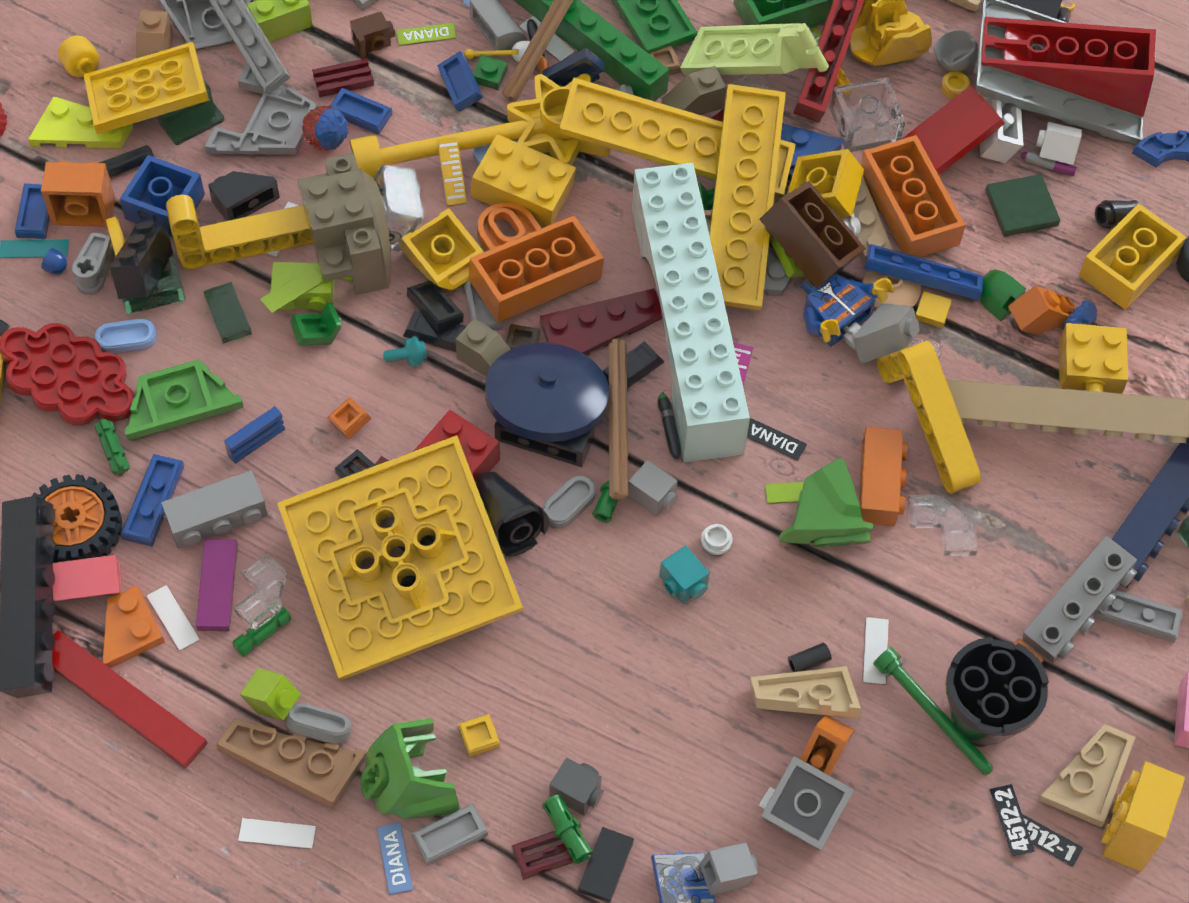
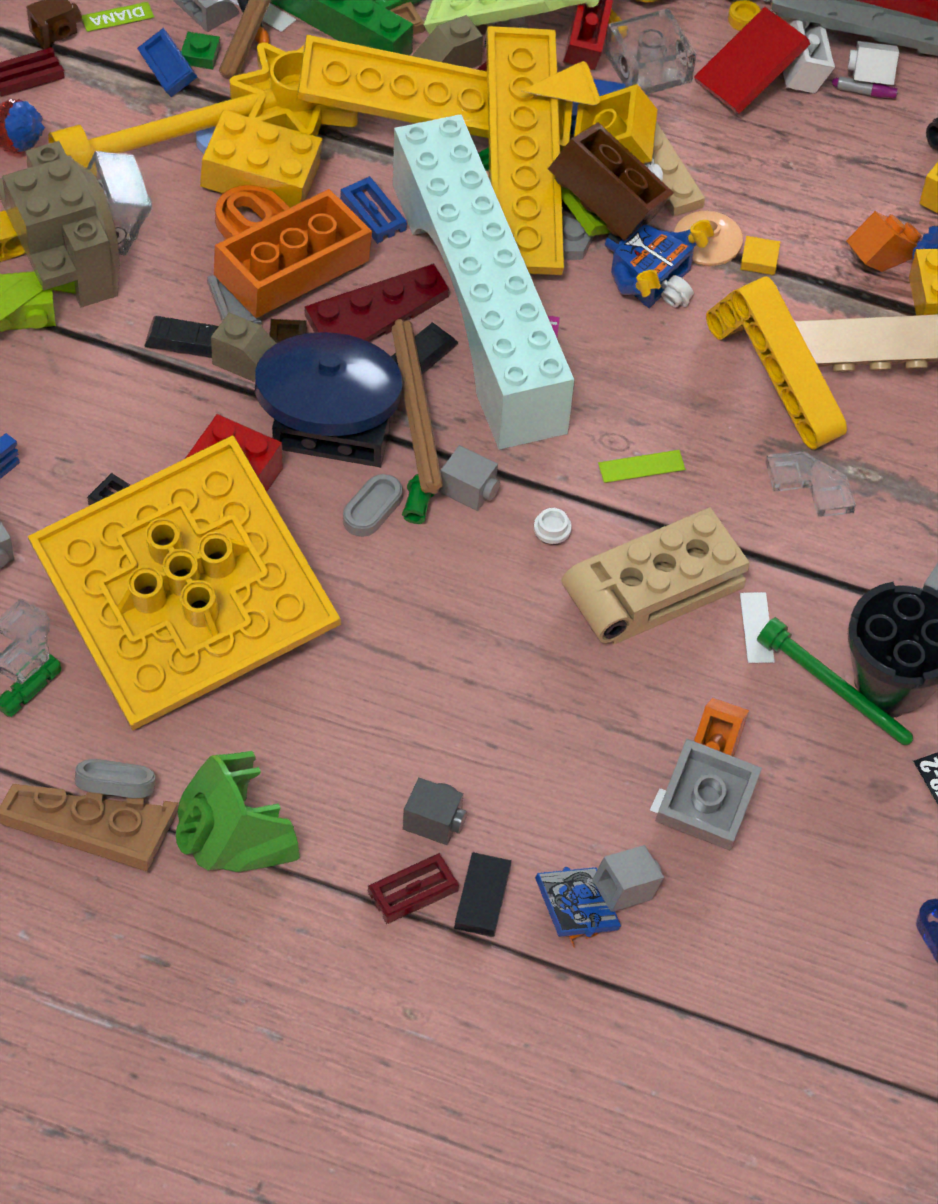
camera: 10 degrees left, 5 degrees down
(270, 694) = (52, 750): lime brick -> none
(277, 833) = (83, 908): white sticker -> none
(316, 328) = (41, 346): green bracket -> none
(349, 418) = (95, 440): orange tile -> none
(362, 111) = (57, 106): blue tile -> none
(394, 858) = (230, 918): medium blue sticker -> none
(413, 351) = (161, 359): teal plate -> none
(435, 305) = (178, 306): black tile -> none
(442, 250) = (176, 245): yellow slope -> none
(450, 834) = (292, 883): light grey tile -> none
(452, 170) = (174, 158): yellow sticker -> none
(478, 735) = (308, 771): yellow tile -> none
(511, 513) = (313, 521): black cone -> none
(517, 51) = (229, 26): yellow hinge -> none
(567, 829) = (432, 857): green pin -> none
(573, 66) = (310, 22): plate -> none
(620, 251) = (383, 228): none -> blue tile
(669, 425) = (476, 410): black piece -> none
(684, 575) = (522, 567): teal brick -> none
(775, 439) = (603, 414): black sticker -> none
(792, 143) = (570, 84): none -> yellow sticker
(809, 658) = (682, 642): black piece -> none
(810, 692) = (688, 676): tan wing -> none
(828, 511) = (680, 473): bright green piece -> none
(831, 593) = (657, 577): none -> tan hinge
(882, 475) = (732, 437): orange brick -> none
(886, 332) = (711, 279): light grey slope -> none
(912, 197) = (717, 136): orange brick -> none
(924, 272) = (743, 214): blue tile -> none
(999, 292) = (831, 227): green brick -> none
(1022, 205) = (843, 134): dark green tile -> none

